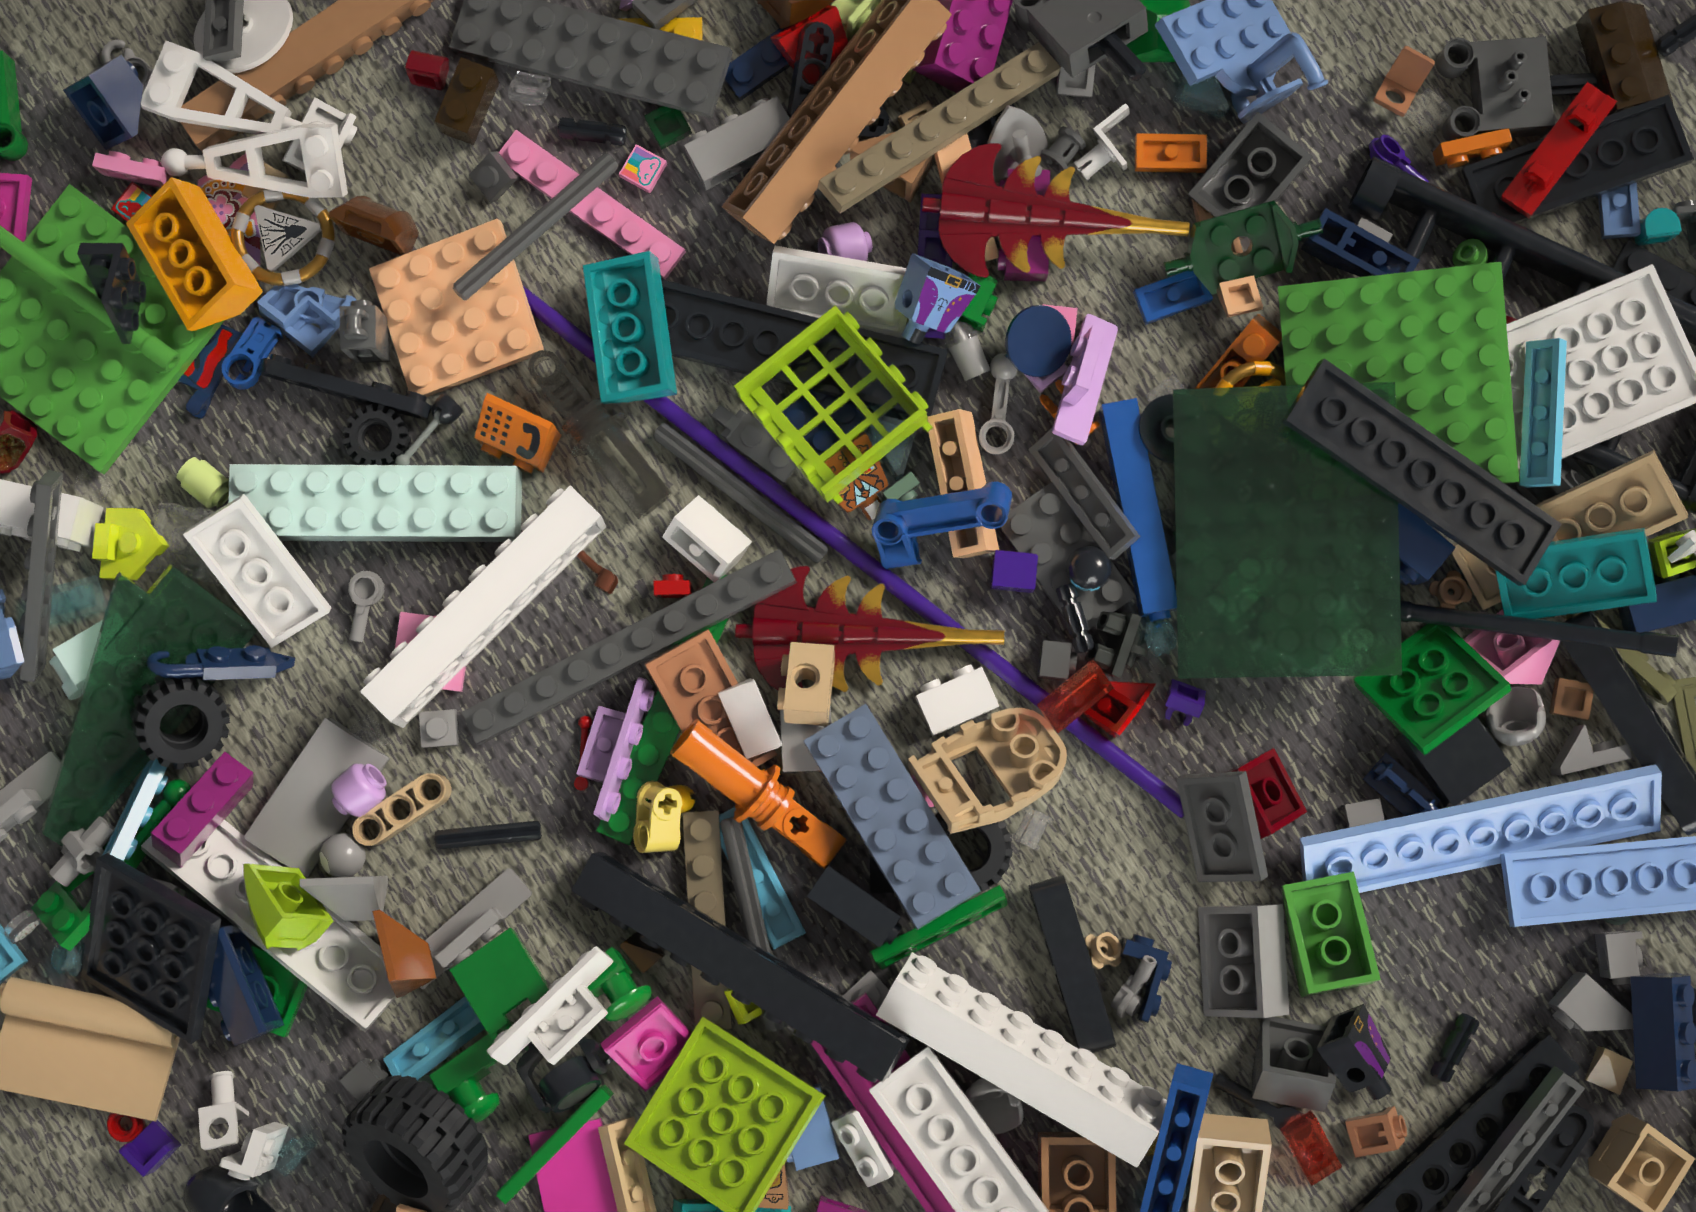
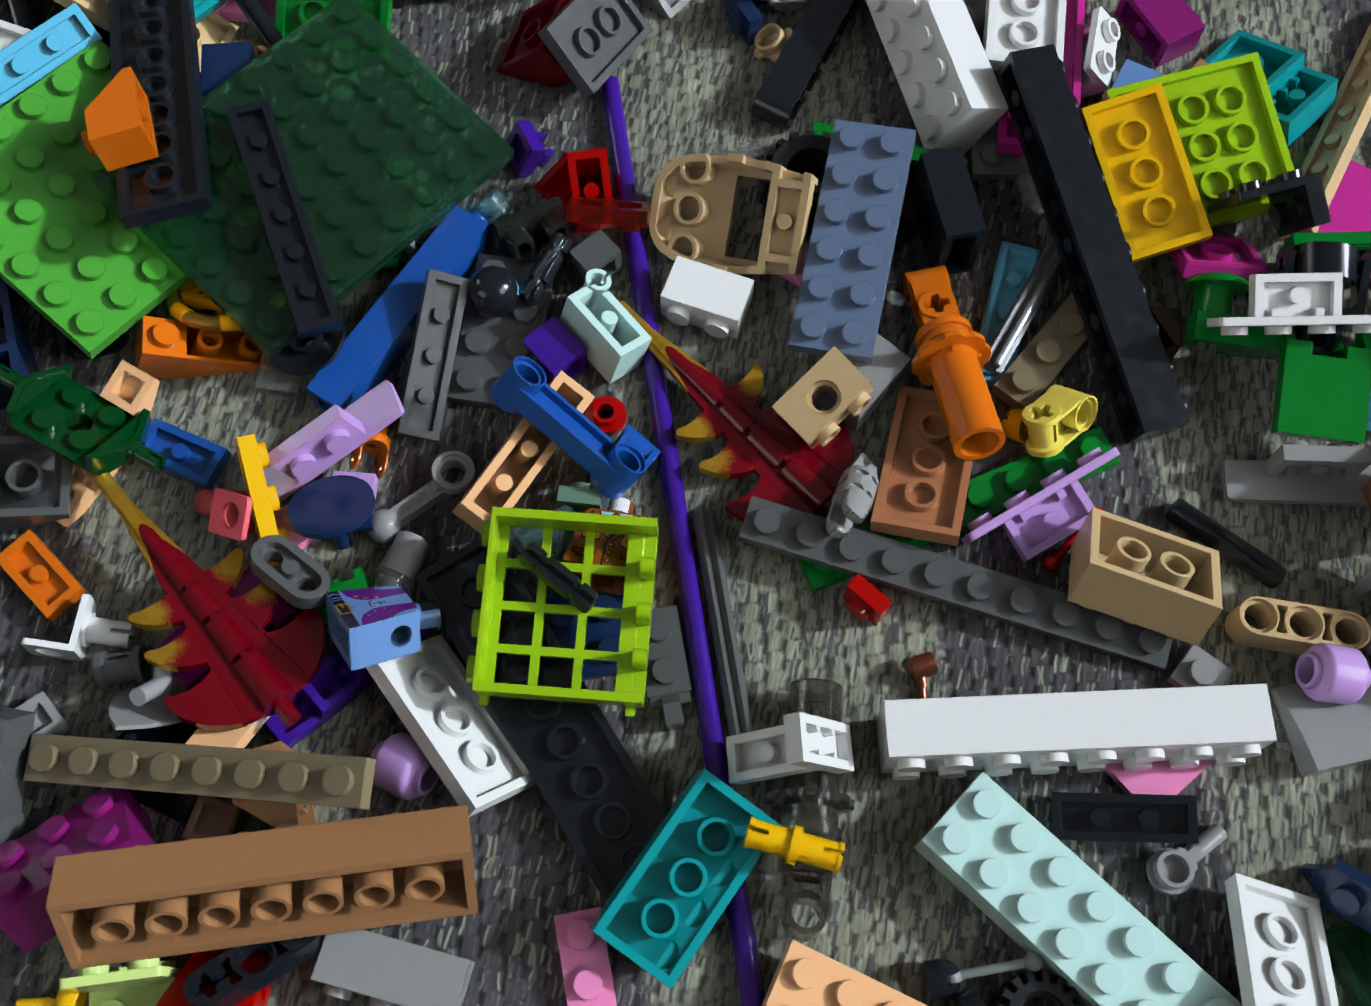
camera: 140 degrees left, 15 degrees down
(415, 591) = (1124, 817): none -> black plate
(516, 434) = (891, 877): orange slope -> none
(517, 749) = (1145, 576): none -> tan brick
(581, 392) = (794, 845): none -> yellow pin
(628, 444) = (794, 748): none -> white bracket
(647, 1101) = (1294, 200): none -> black bracket
(707, 539) = (795, 611): white brick -> none
(734, 639) = (853, 496): none -> light grey hinge
(743, 1050) = (1146, 172): none -> yellow plate
(749, 718) = (900, 422): white slope -> none
(853, 415) = (558, 577): none -> black axle
(940, 573) = (613, 424): none -> red plate
(999, 613) = (604, 327): none -> light aqua hinge
(1014, 279) = (293, 573): none -> dark grey plate
(1082, 307) = (252, 460): none -> yellow plate
(1097, 286) = (228, 512): none -> coral bracket
(1251, 472) = (284, 219): none -> black plate
(1396, 417) = (120, 123): none -> orange slope

